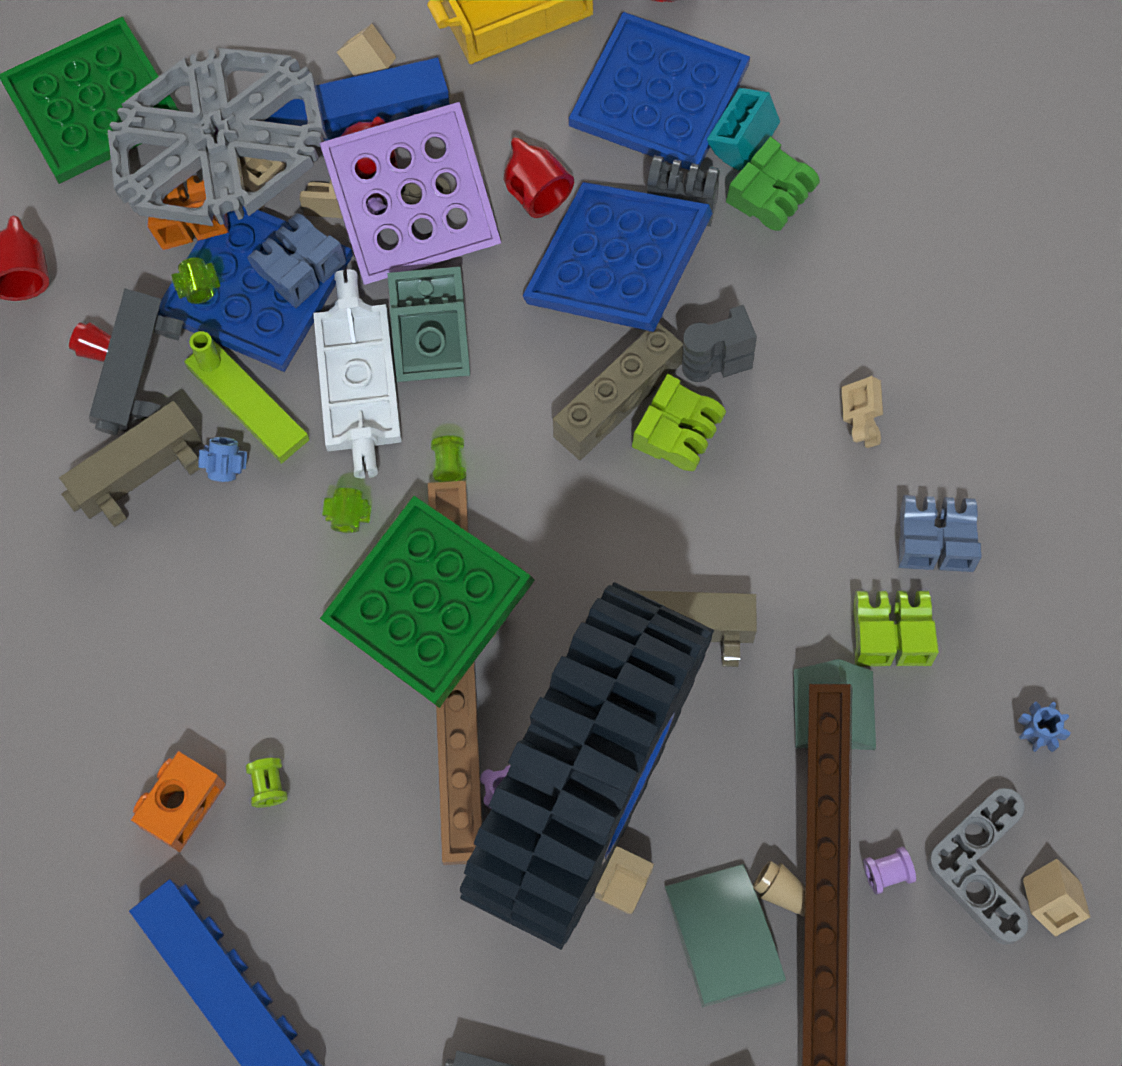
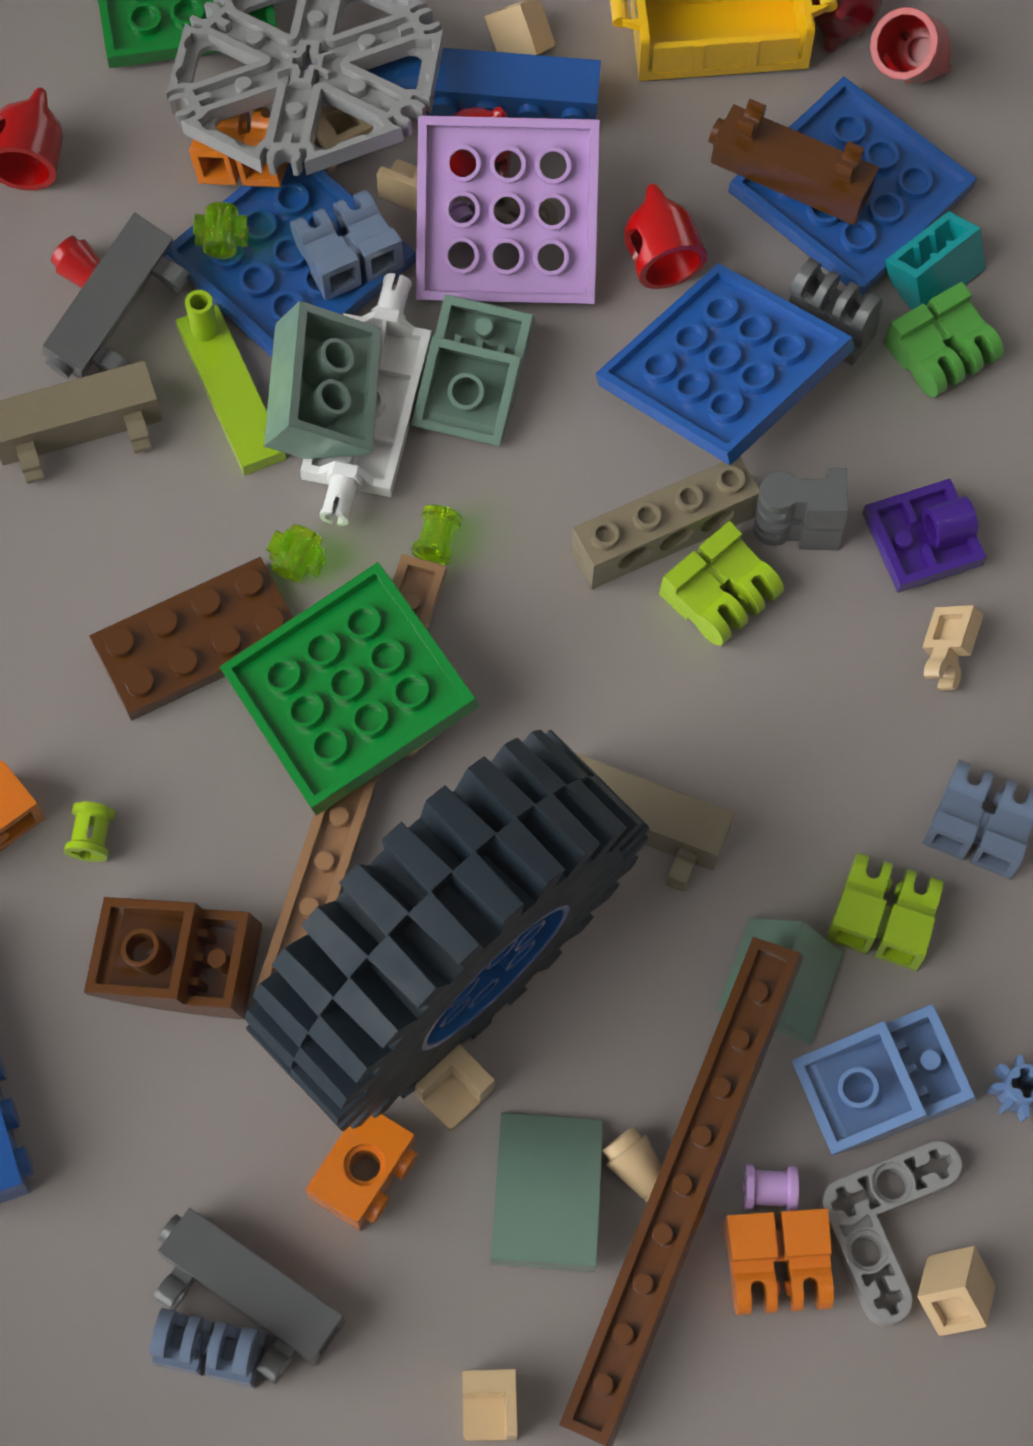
camera: 15 degrees right, 0 degrees up
(222, 459) = (176, 447): medium blue gear -> none
(286, 603) = (189, 636): none -> reddish brown plate
(319, 373) = (322, 384): none -> sand green slope
(368, 857) = (174, 957): none -> reddish brown slope
(574, 995) = (358, 1200): none -> orange brick
(612, 88) = (793, 162): none -> reddish brown brick
(814, 334) = (925, 534): none -> dark purple plate
(923, 903) = (799, 1241): none -> orange legs
(941, 757) = (883, 1080): none -> medium blue slope

